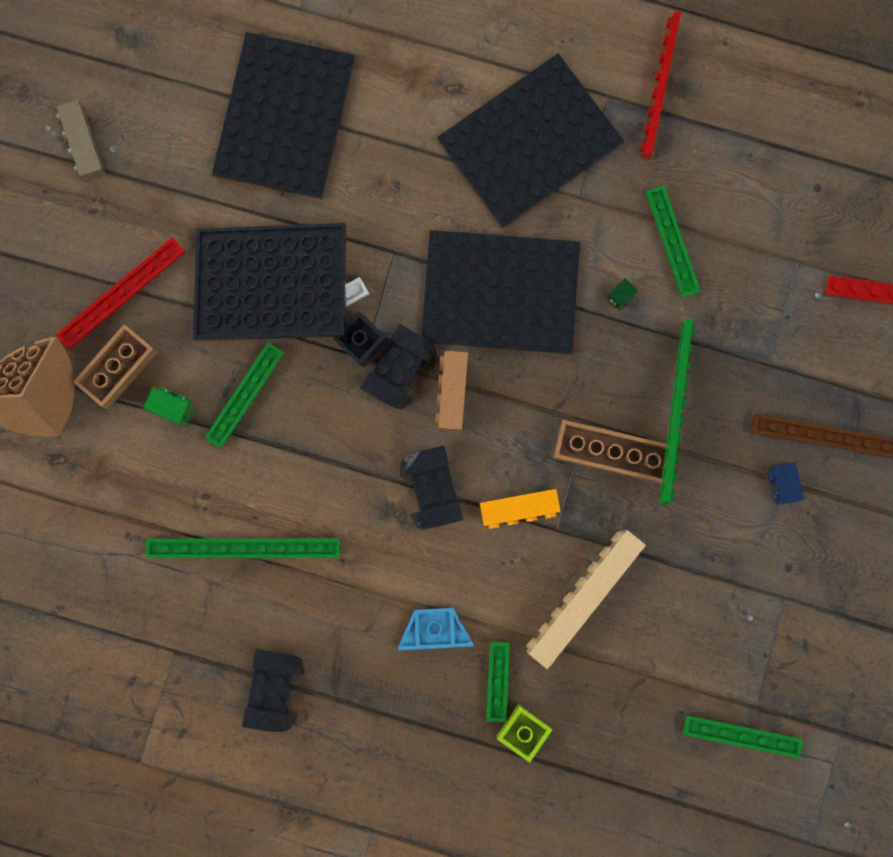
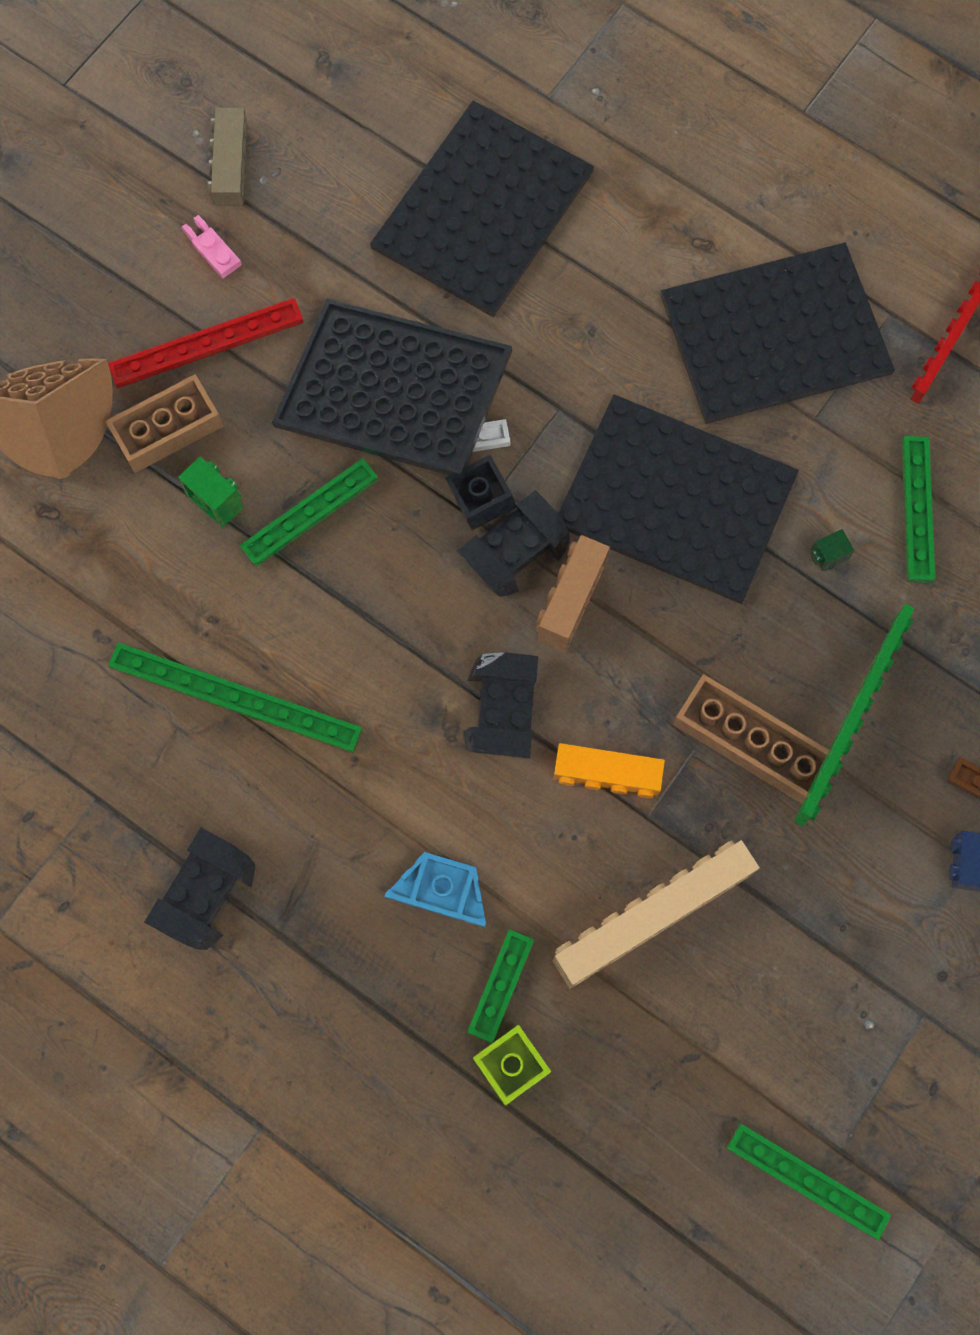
camera: 20 degrees right, 10 degrees down
(97, 217) = (212, 248): none -> bright pink hinge

